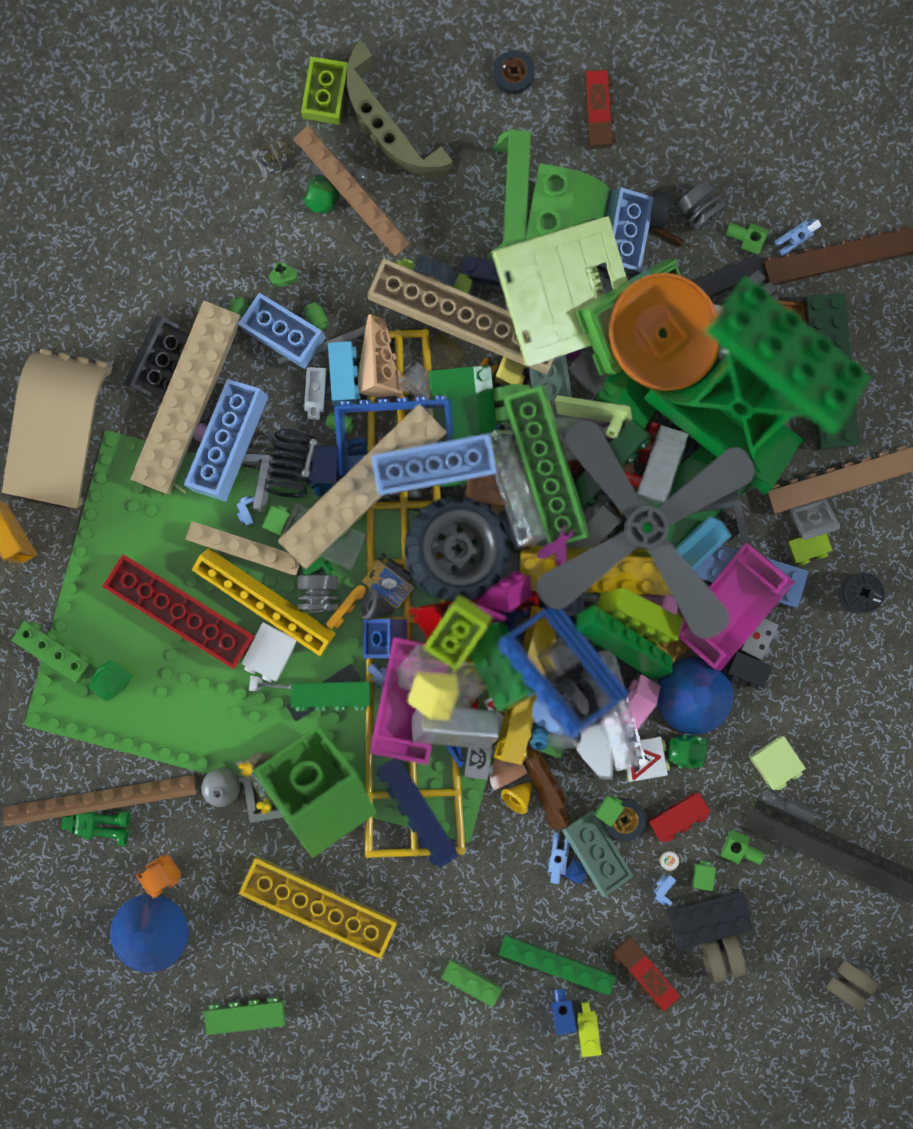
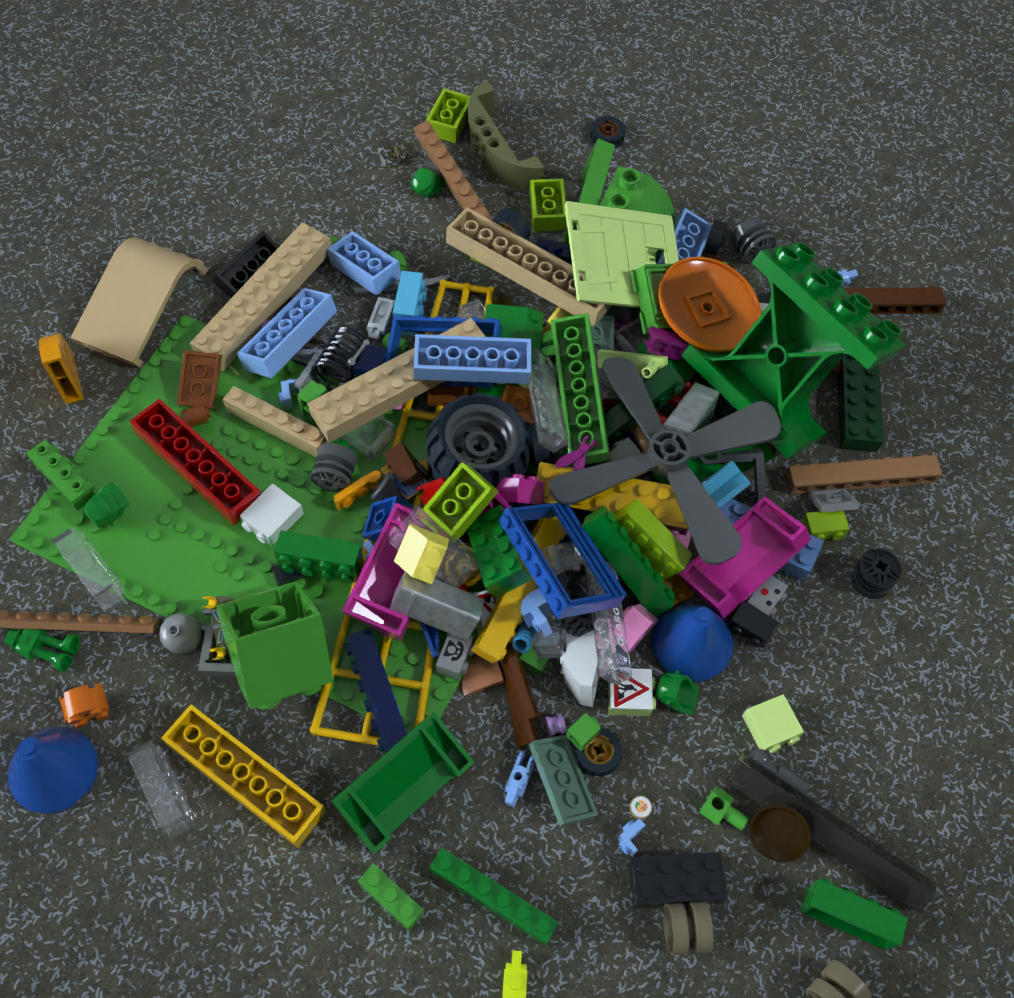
camera: 10 degrees right, 25 degrees down
(118, 749) = (91, 569): none -> clear piece
(152, 517) = (199, 379): none -> dark orange tile
(161, 557) = (196, 415): none -> dark orange brick
(244, 1016) = (122, 882): bright green brick -> none
(253, 936) = (162, 789): none -> clear piece
(256, 684) = (249, 541): hinge -> none
(263, 601) = (280, 468): yellow brick -> none
(283, 275) = (377, 228): bright green piece -> none
(377, 367) = (442, 294): light nougat wedge -> none
(385, 576) = (403, 465): none -> reddish brown hinge
(459, 888) = (402, 781): none -> green slope
(465, 201) = (548, 205): none -> lime brick
(517, 797) = (488, 701): yellow hat -> none
(563, 1023) = (488, 963): blue torso -> none
(575, 871) = (535, 798): blue tile -> none
(581, 803) = (555, 725): none -> lavender wheel
(598, 109) = (674, 166): reddish brown brick -> none
(623, 390) = (665, 343): none -> magenta hinge
(646, 973) = (595, 931): reddish brown brick -> none
(679, 817) = (658, 760): red brick -> none
(703, 875) = (677, 830): bright green brick -> none
(792, 863) = (780, 833): none -> dark brown piece
(859, 920) = (854, 914): none -> green piece

